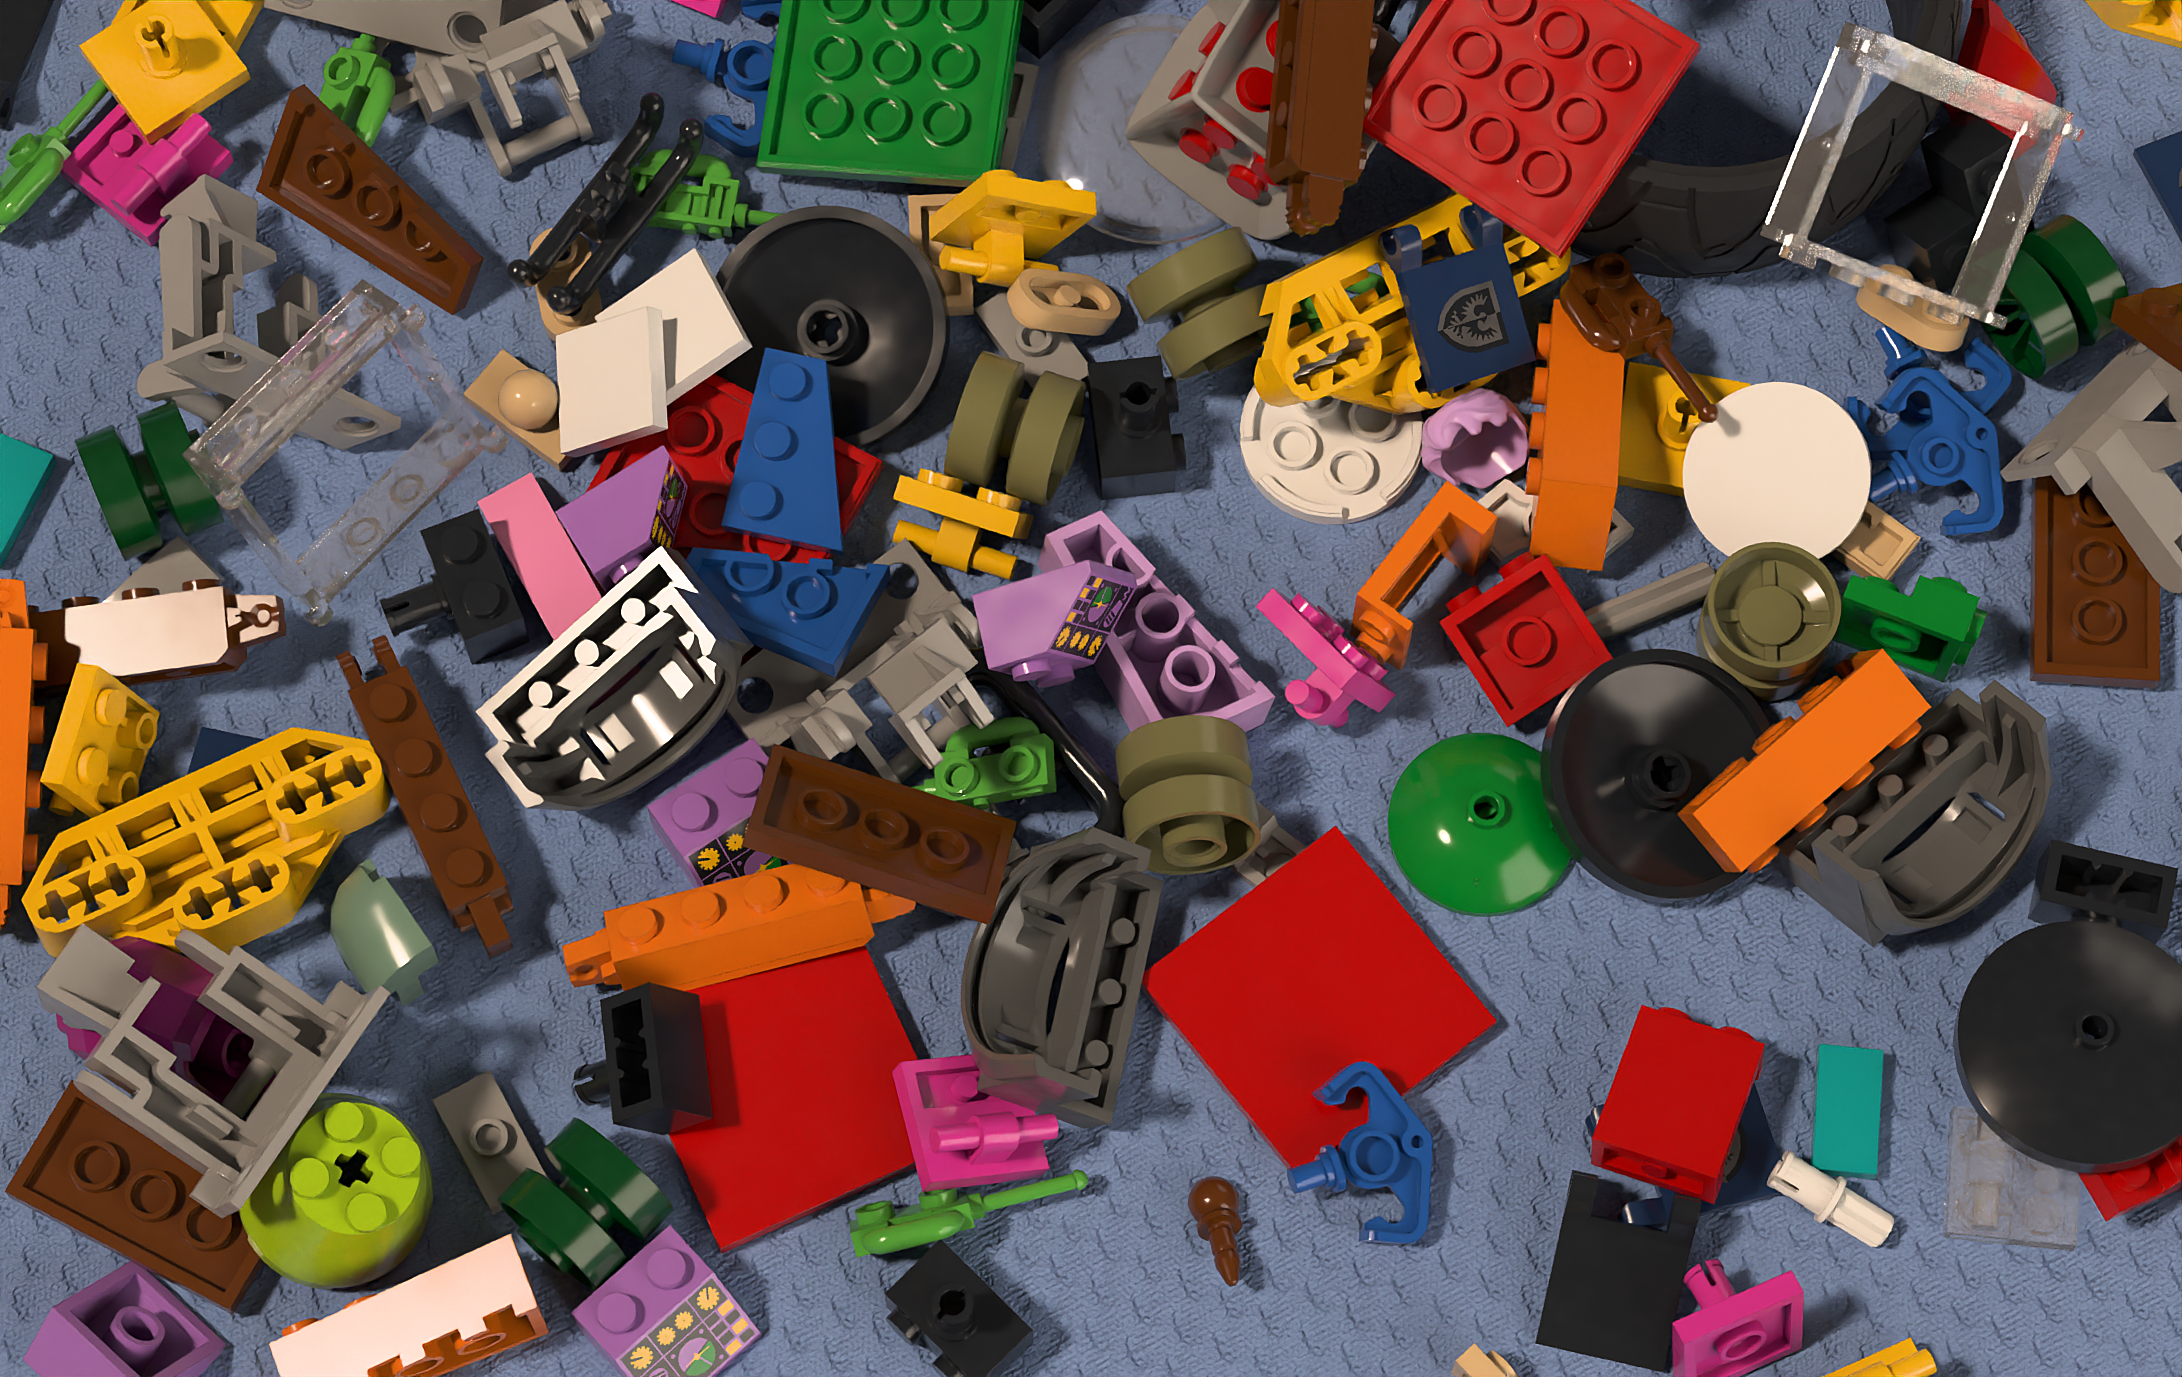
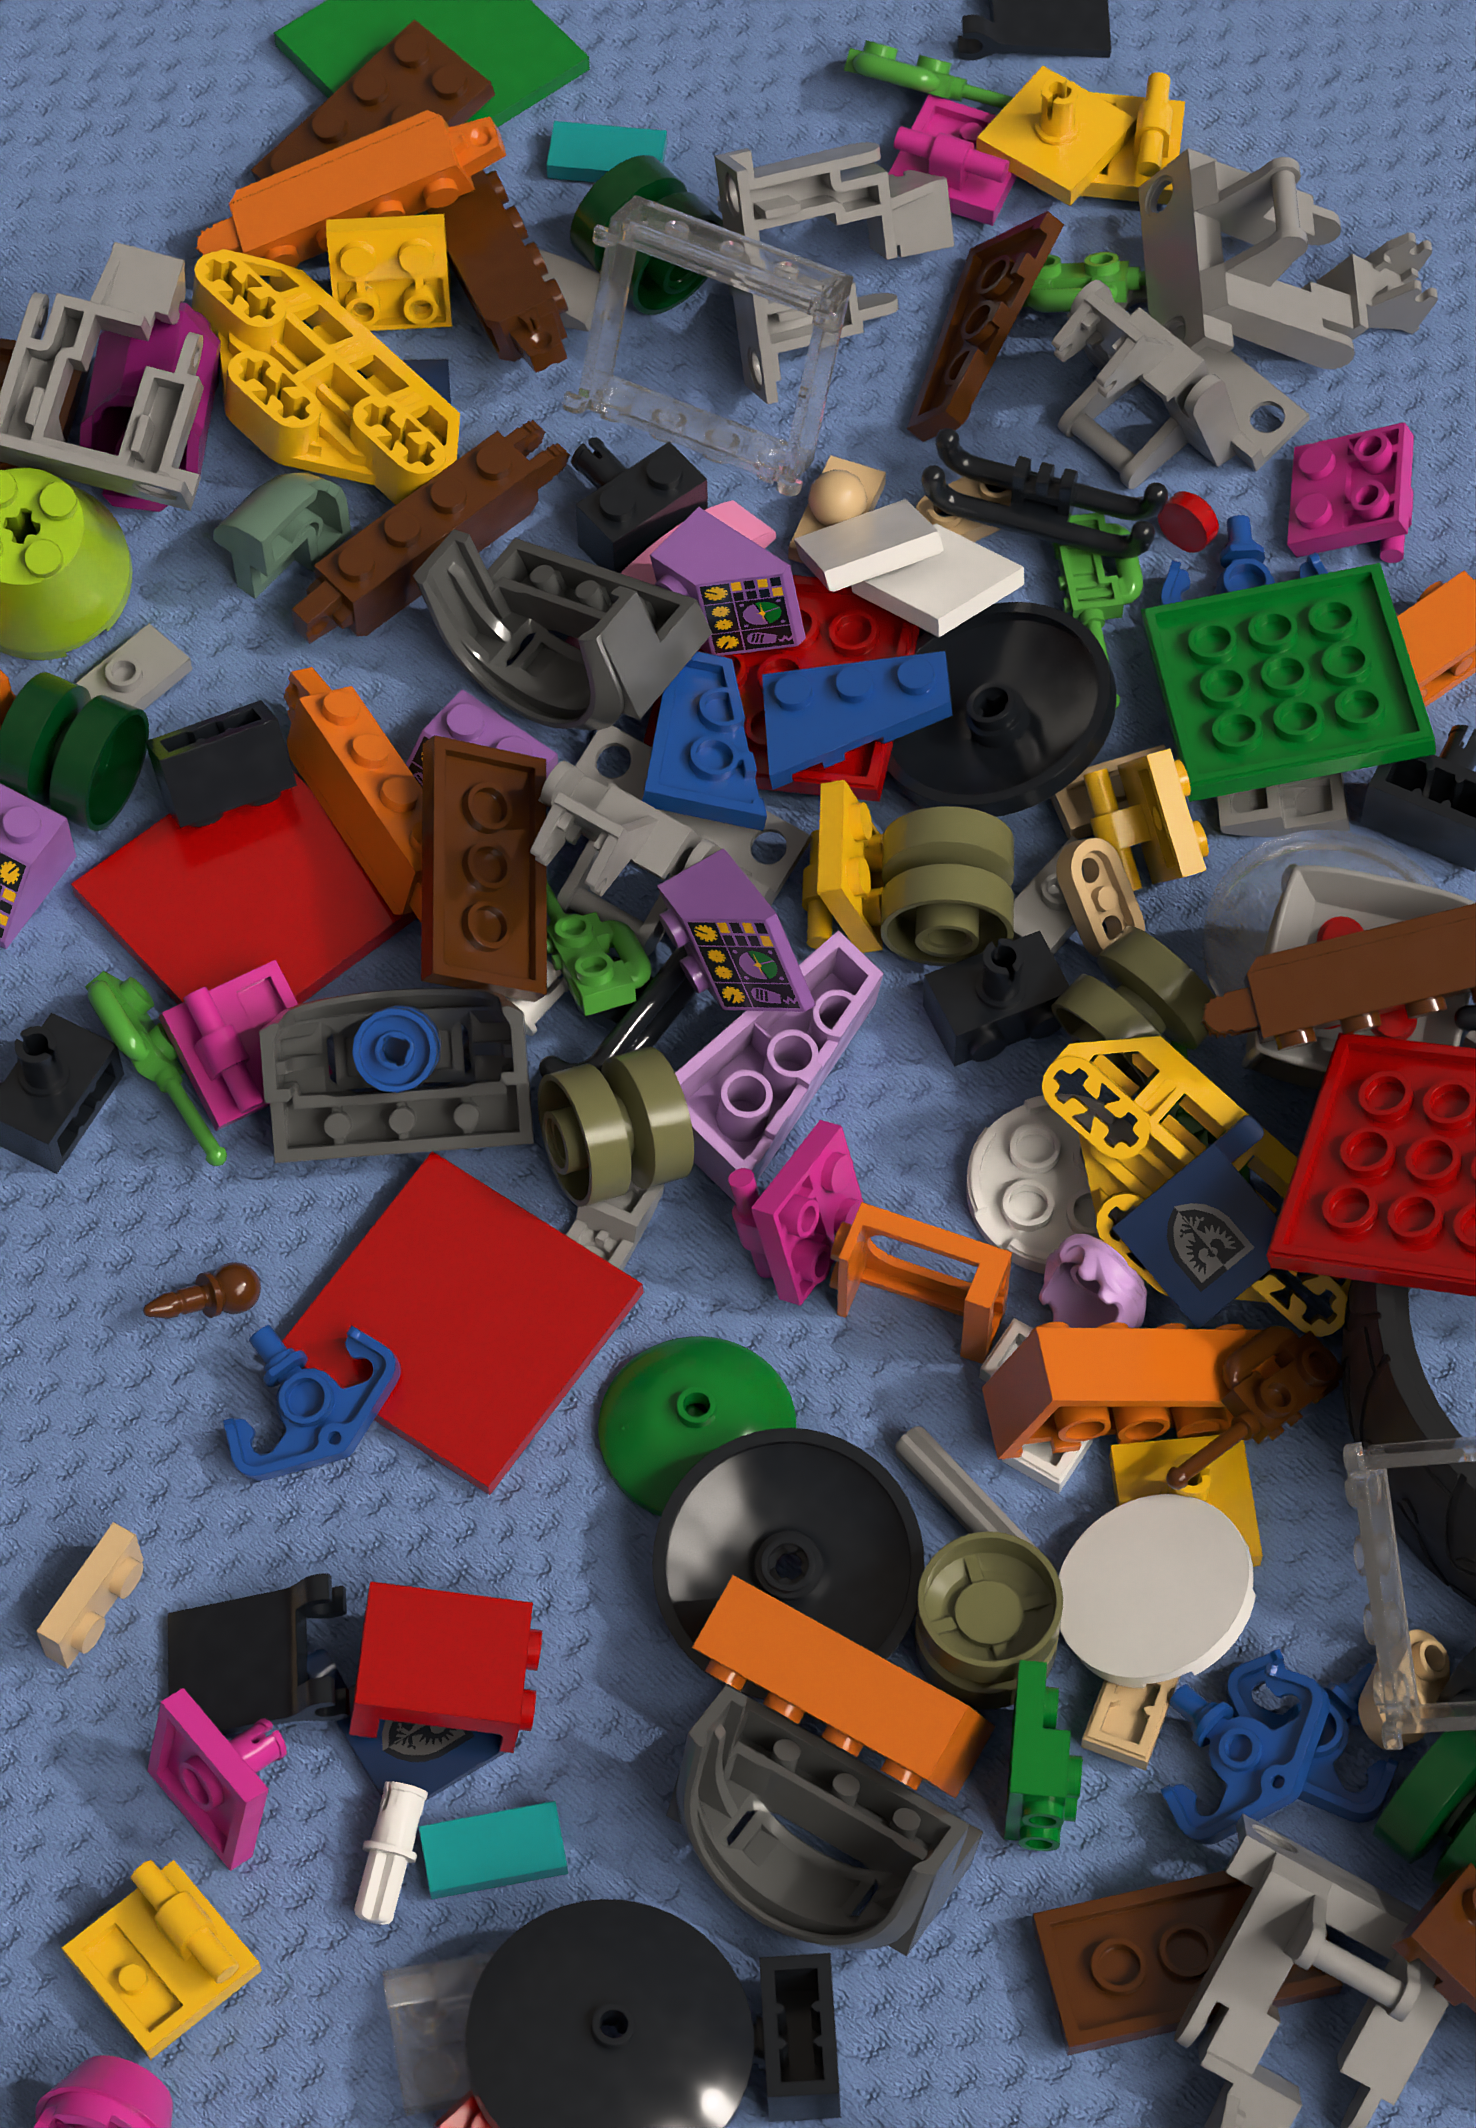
camera: 75 degrees right, 10 degrees down
(669, 84) = (1188, 522): none -> red tile
(1045, 969) = (397, 1048): none -> blue wheel
(1524, 636) = (897, 1396): red plate -> none

